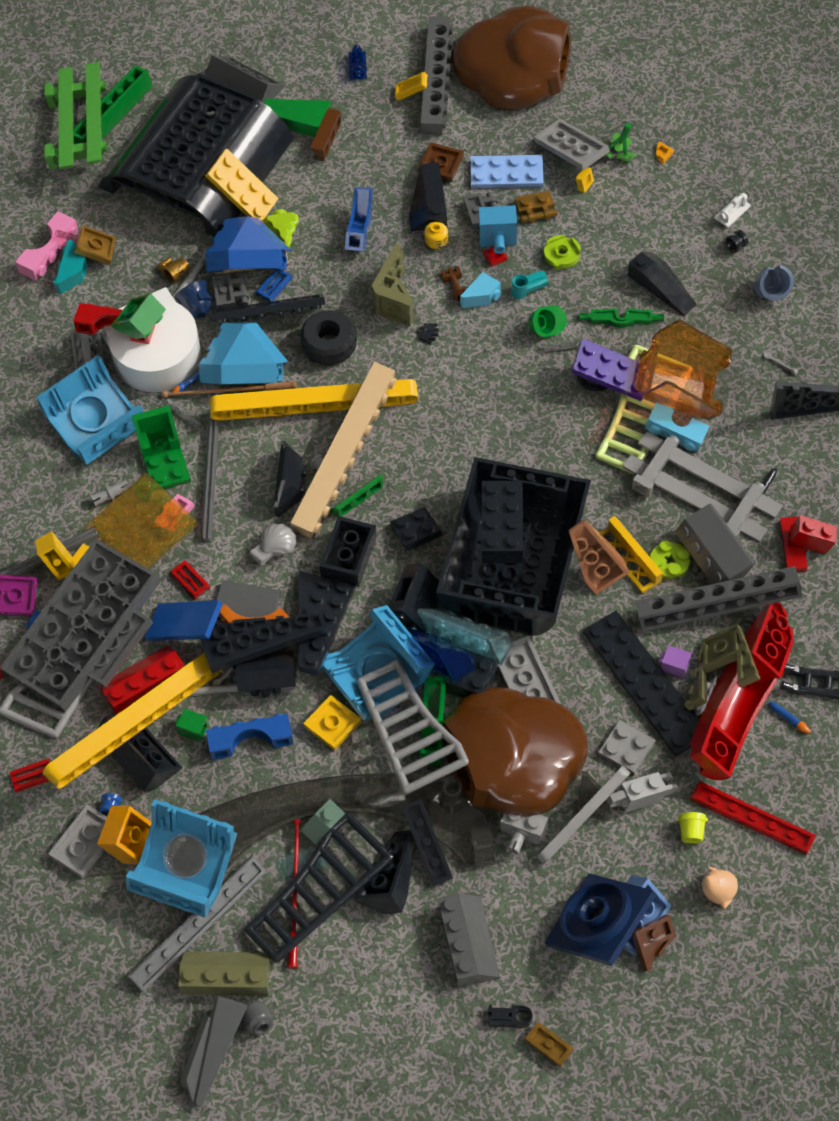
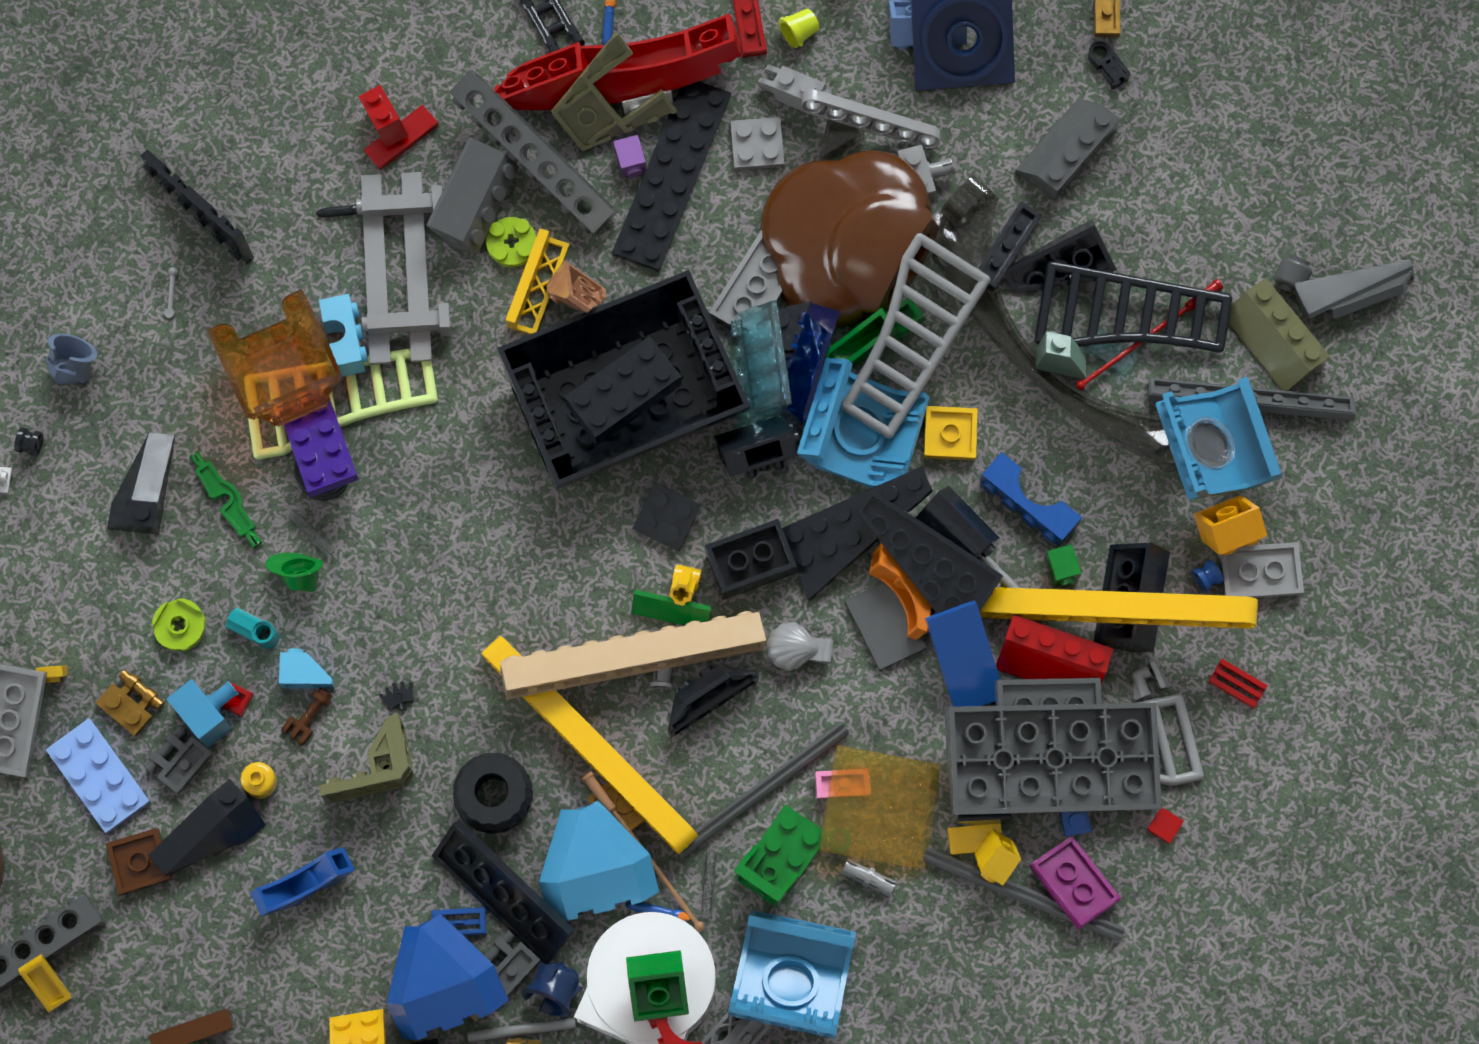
camera: 130 degrees left, 15 degrees up
(77, 730) = (1140, 685): none -> light grey piece
(194, 594) = (899, 728): red tile -> none
(282, 224) = (371, 975): lime rock -> none
(366, 510) = (684, 583): none -> yellow piece

